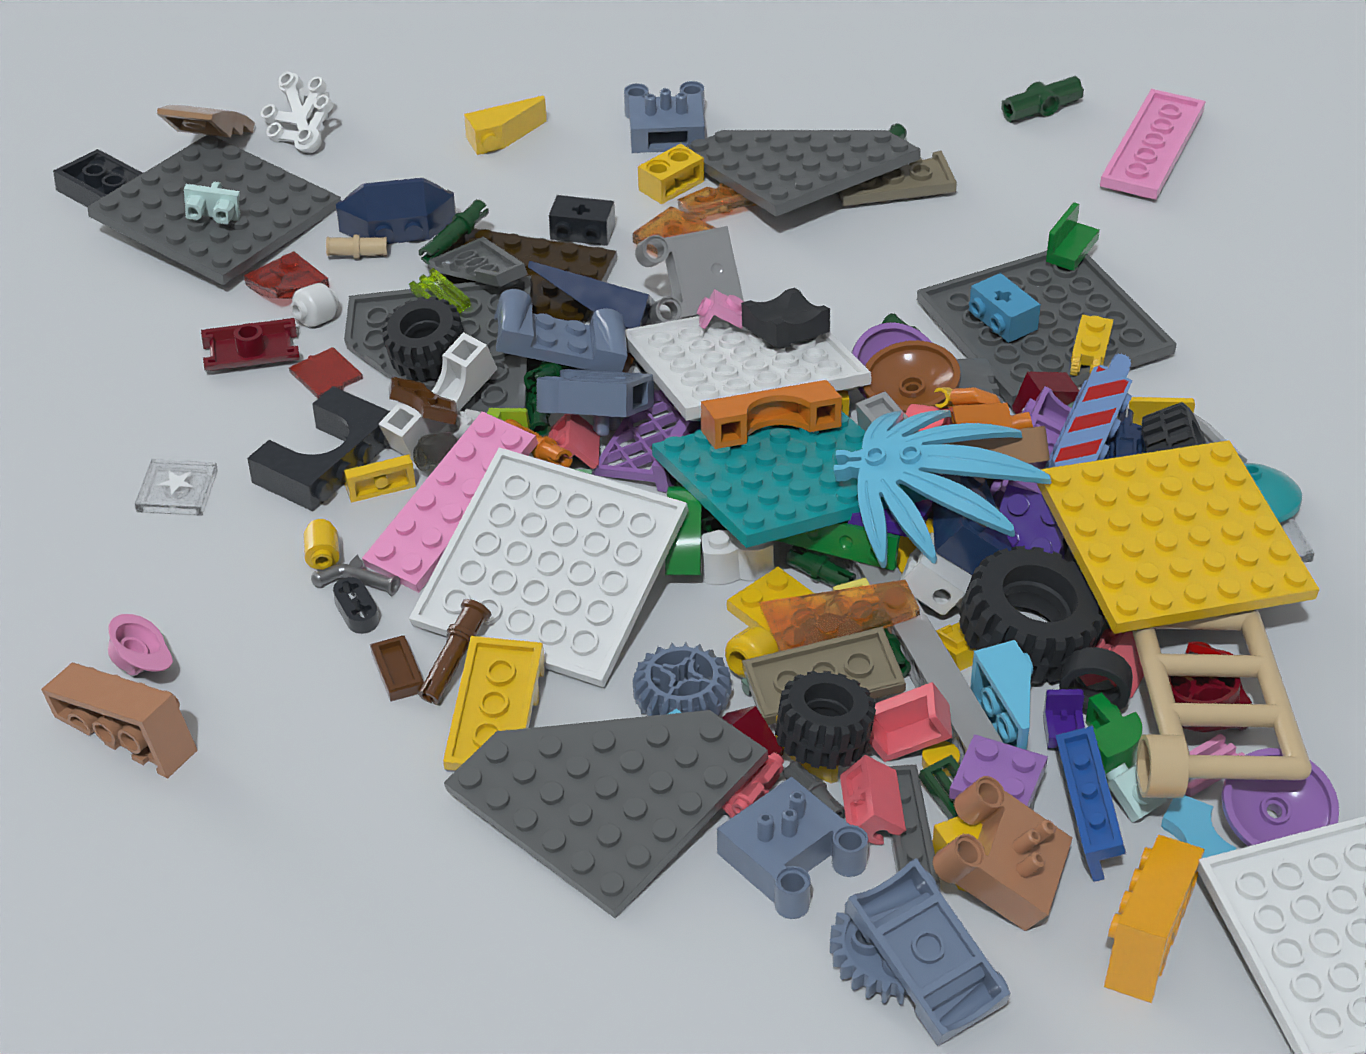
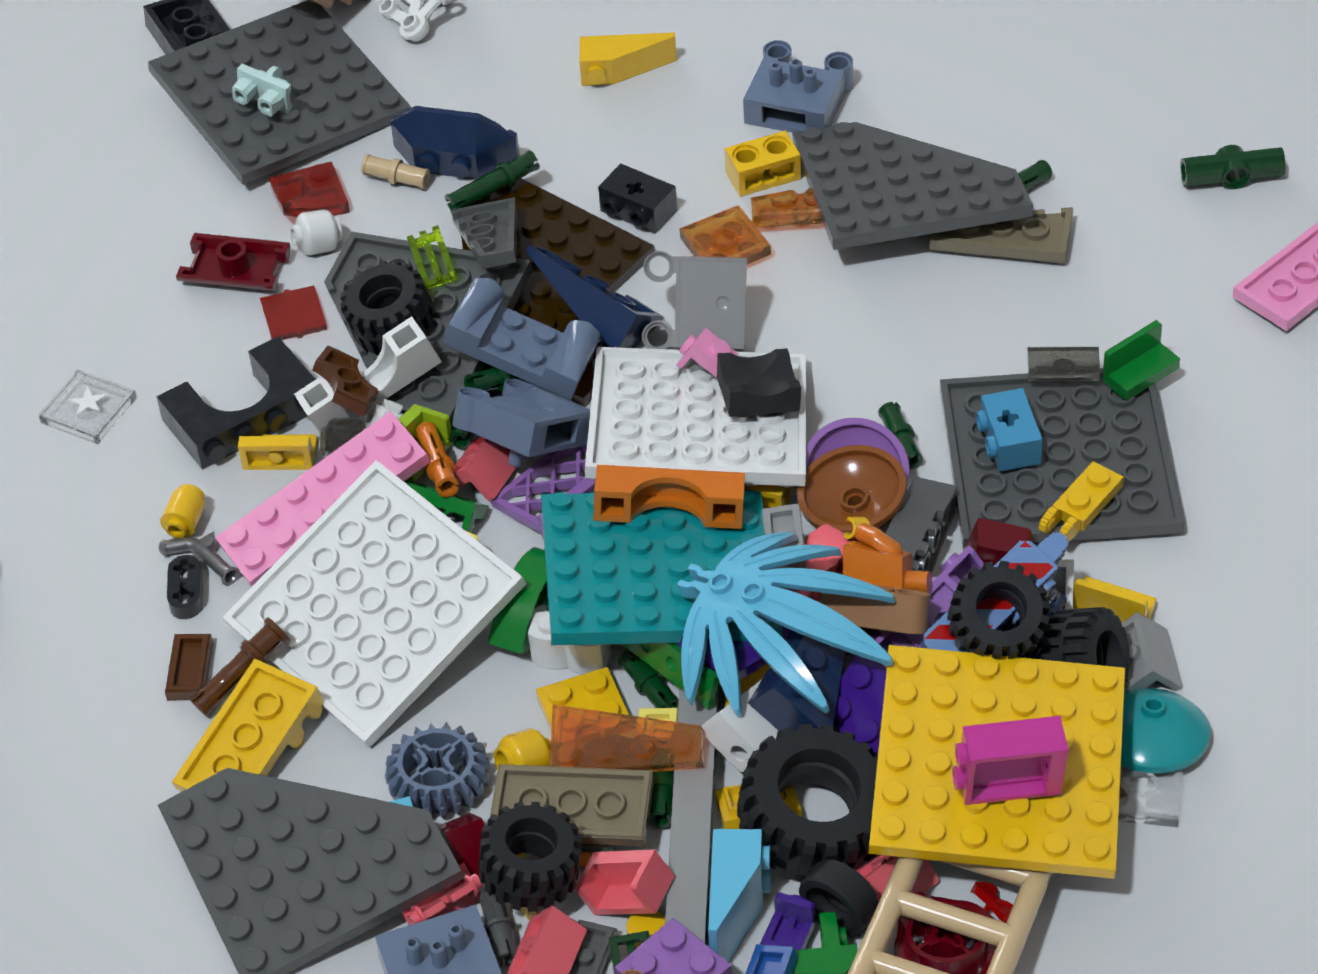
camera: 25 degrees right, 5 degrees up
(1012, 254) = (1063, 363): none -> clear smoke plate
(1123, 405) = (1003, 584): none -> black tyre
(1223, 497) = (1011, 779): none -> dark pink window

